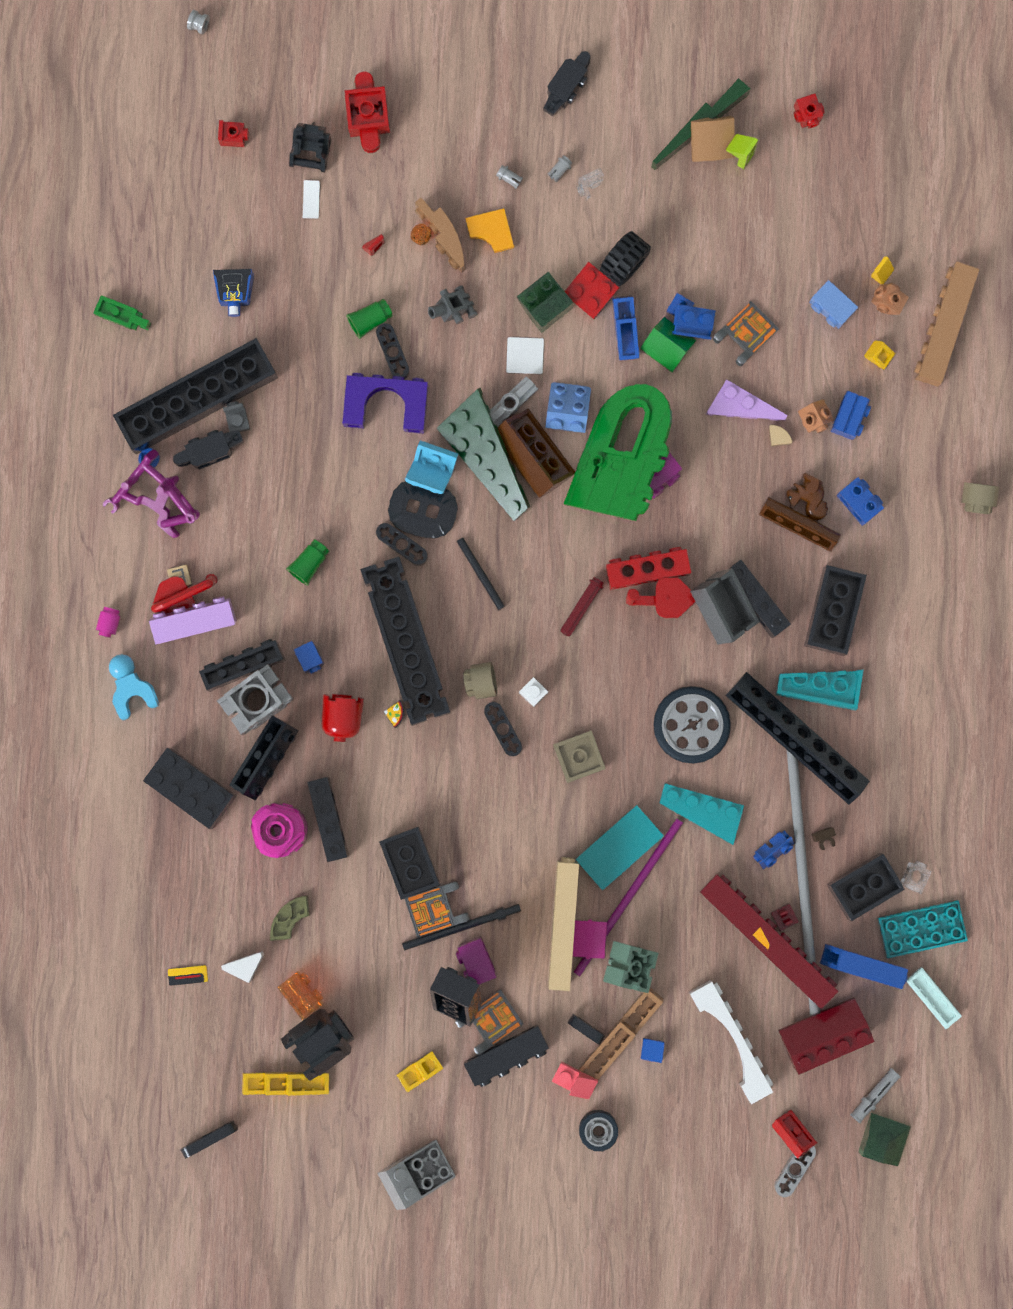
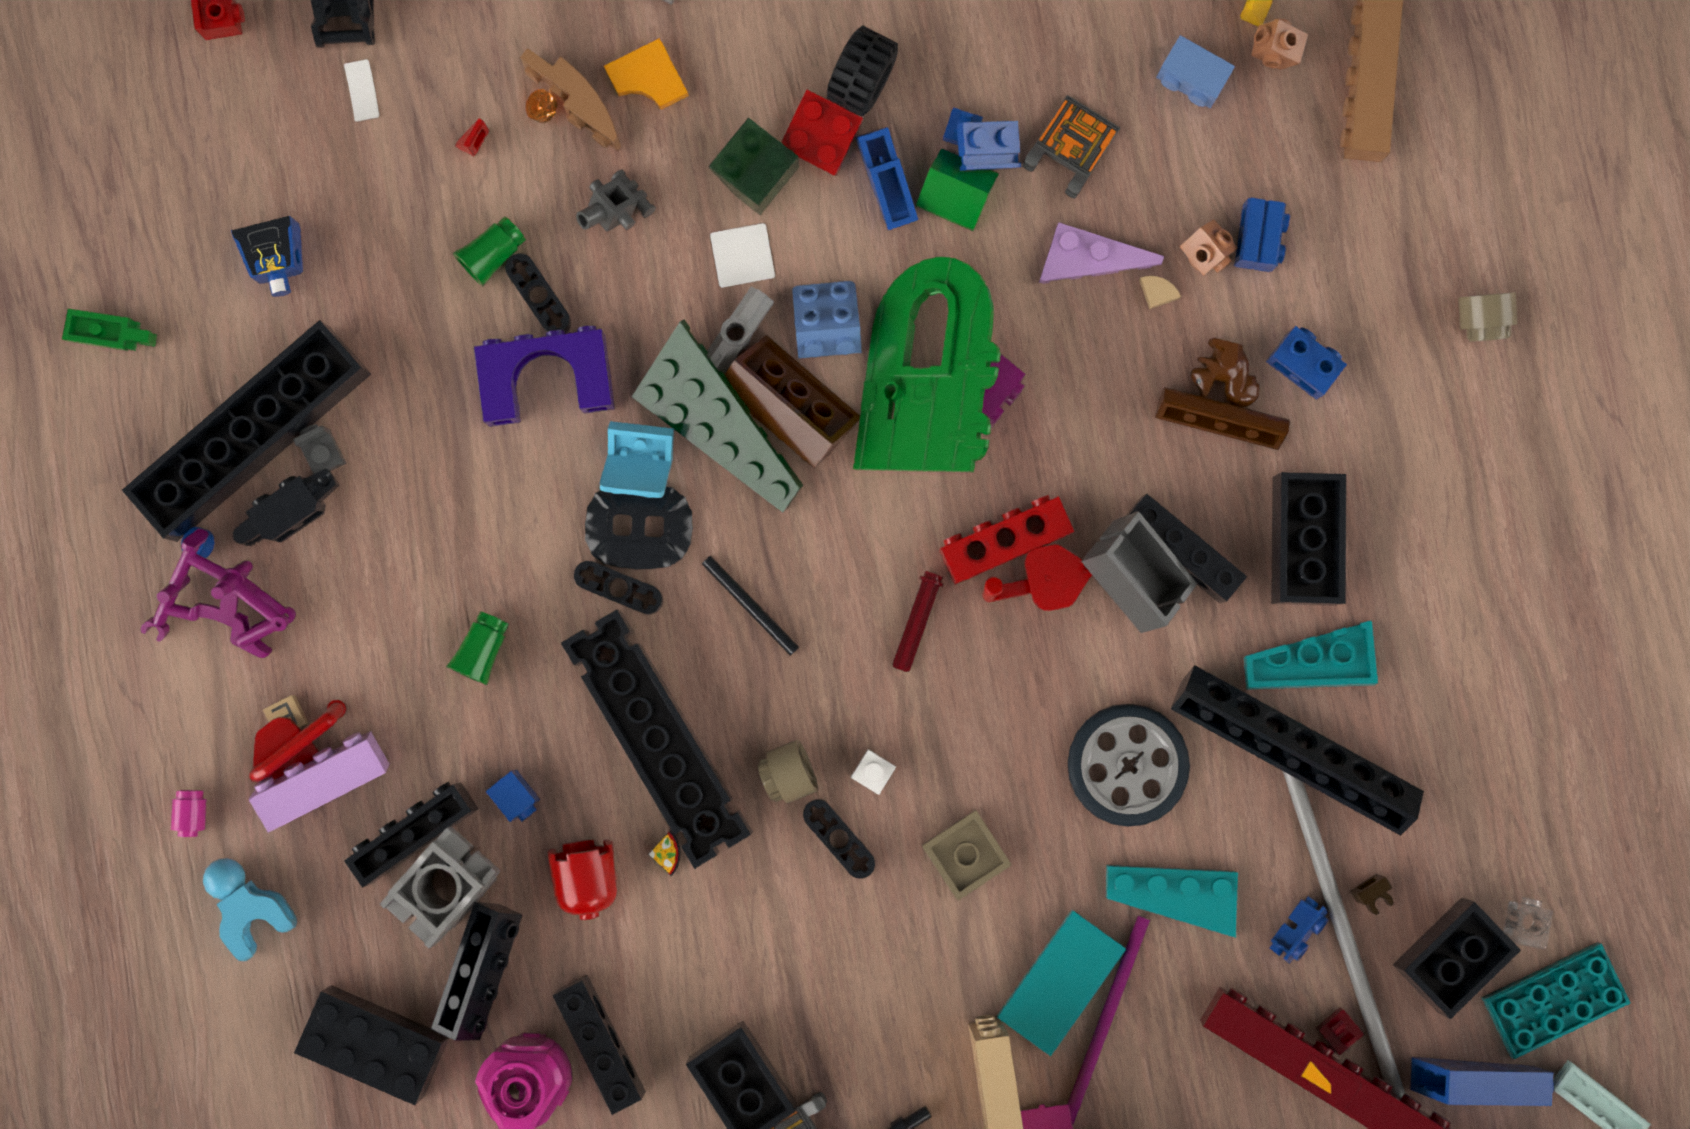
camera: 15 degrees left, 0 degrees up
(879, 354) = (1281, 132): yellow slope -> none

